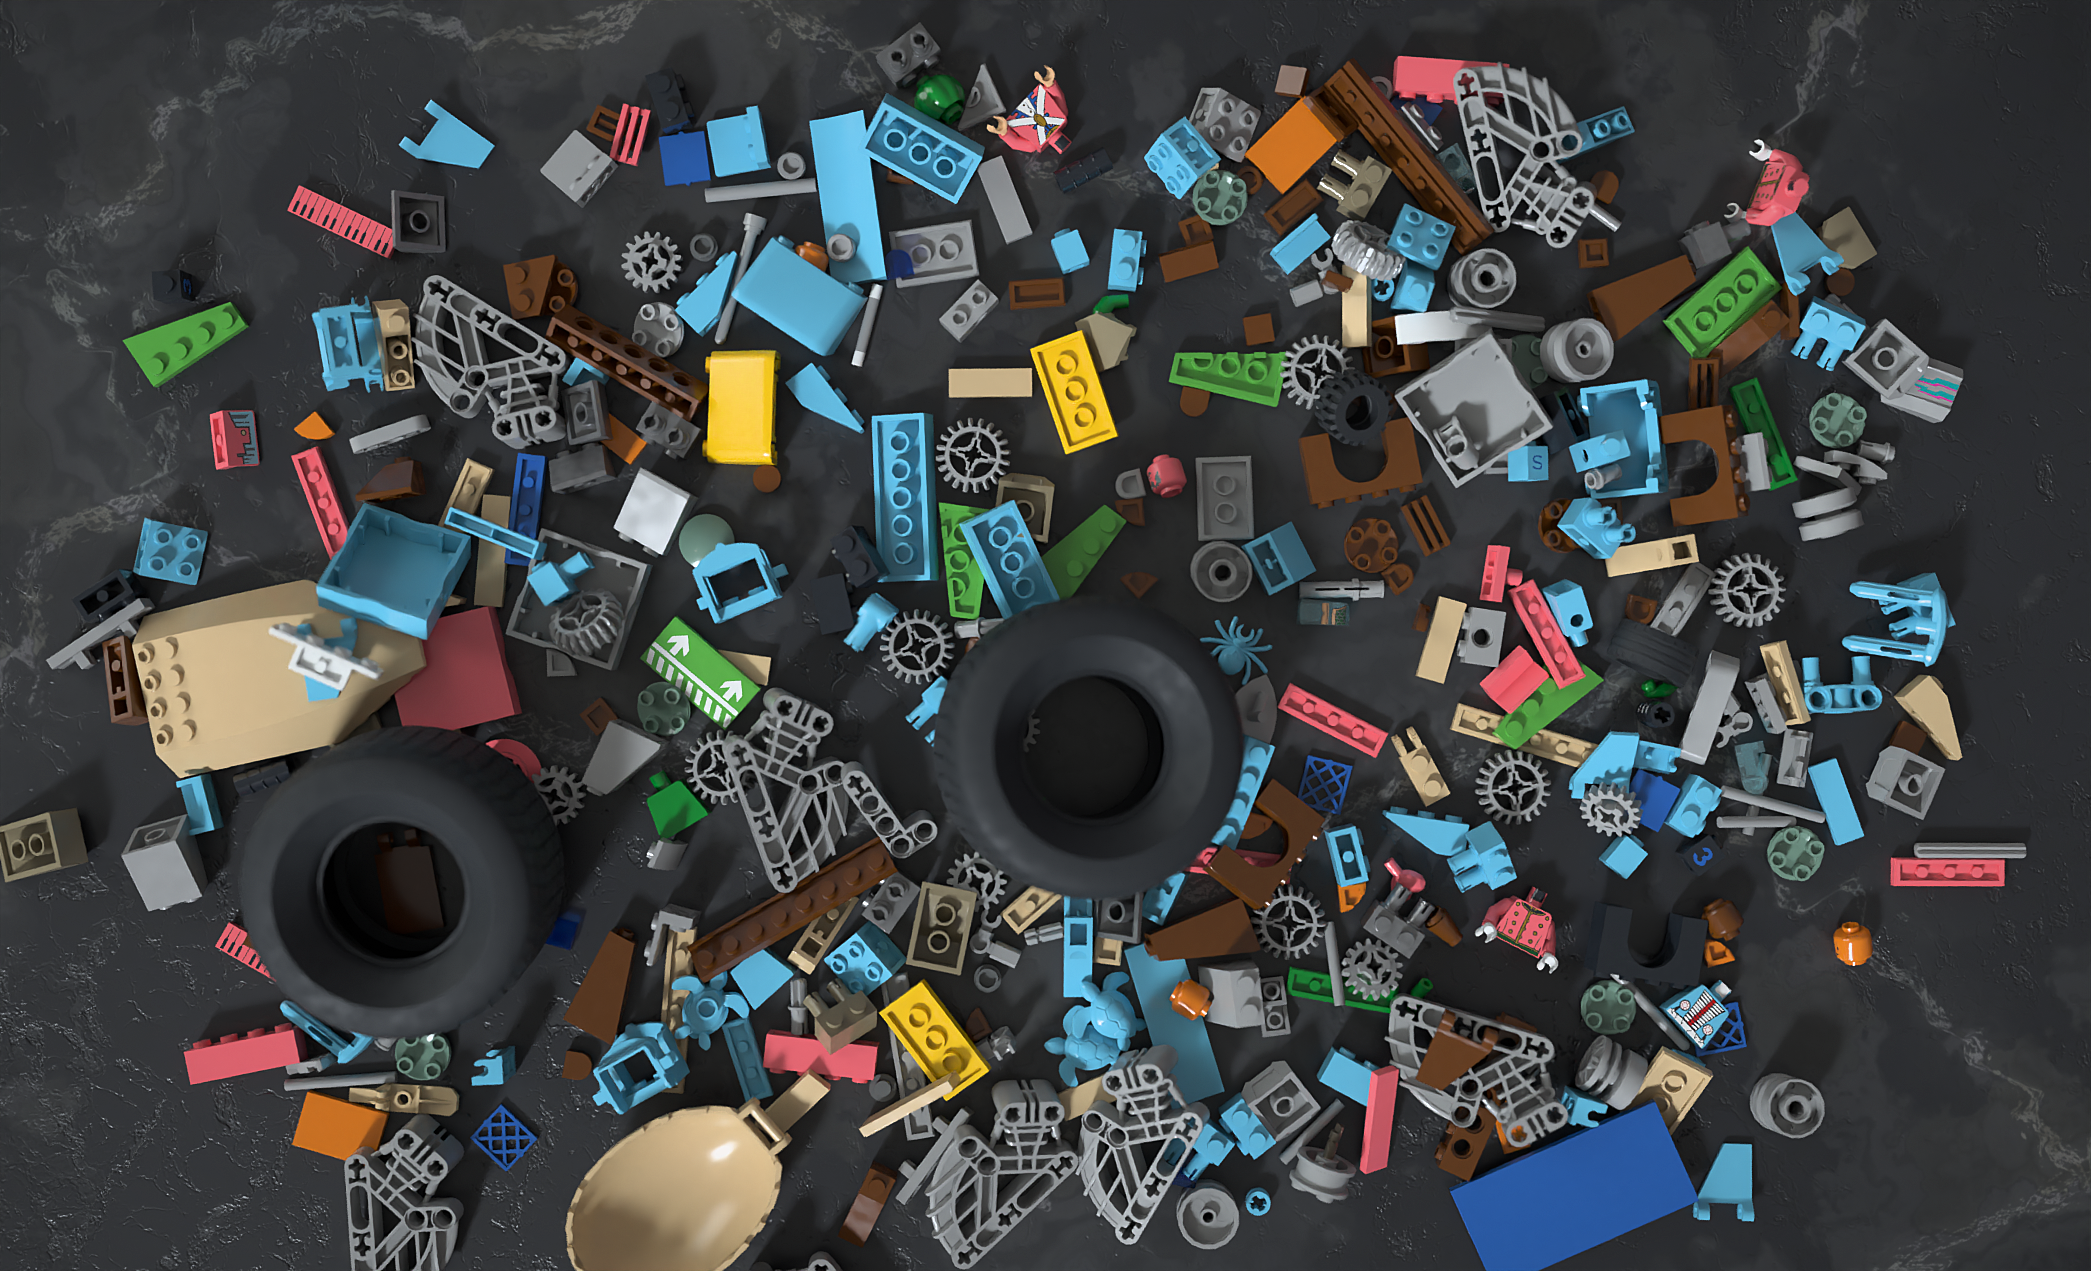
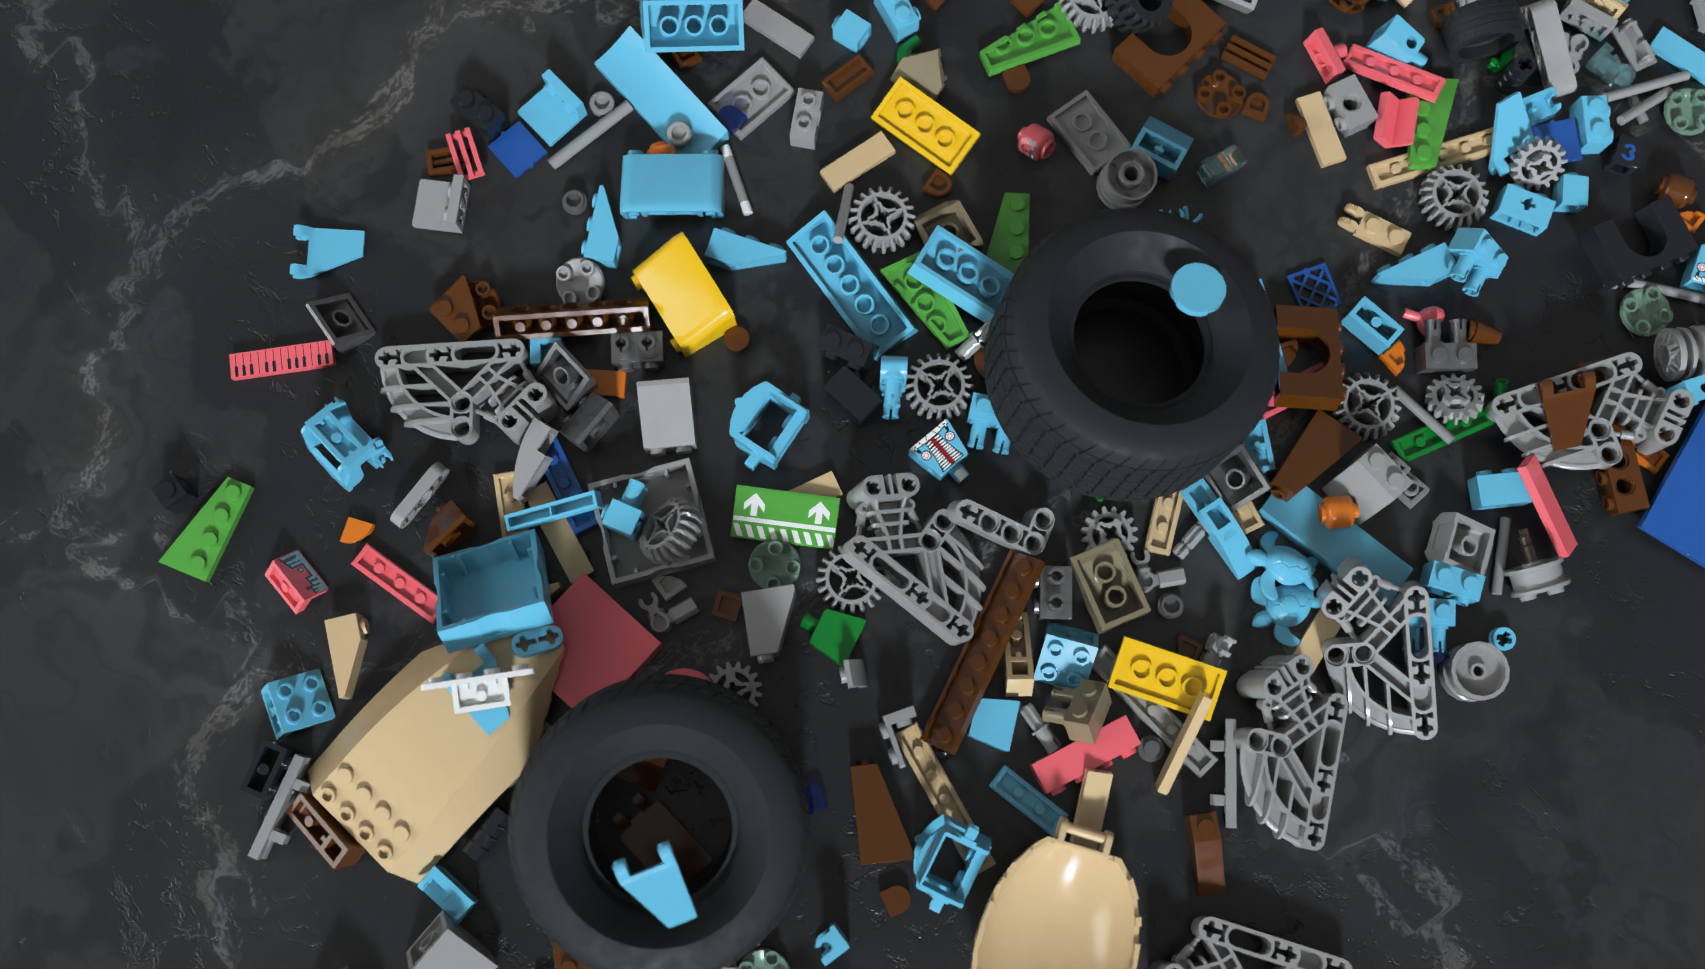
camera: 35 degrees left, 10 degrees down
(242, 530) = (347, 647): none -> tan slope
(355, 942) = (659, 887): none -> medium azure flag
(394, 343) = (378, 420): tan slope -> none
(400, 652) = (539, 647): none -> medium azure beam
(508, 471) = (532, 458): none -> light grey slope
(531, 690) = (661, 621): none -> light grey bar
(654, 251) = (554, 232): light grey gear -> none
(702, 535) = (715, 415): sand green dish -> none
(706, 1007) = (968, 777): medium azure animal -> none
(753, 227) = (602, 161): light grey piece -> none
(878, 709) = (941, 453): none -> torso
(940, 427) = (843, 213): none -> light grey bar
(1050, 454) = (938, 184): none -> reddish brown tile
(1130, 485) = (1013, 168): light grey tile -> none
(1132, 511) = (1028, 184): reddish brown tile -> none
(1171, 741) = (1198, 289): none -> medium azure tile
(1332, 720) = (1285, 238): coral tile -> none
(1374, 589) = (1231, 134): light grey pin -> none
(1523, 926) = (1541, 291): coral torso -> none
(1573, 856) = (1523, 209): none -> medium azure brick

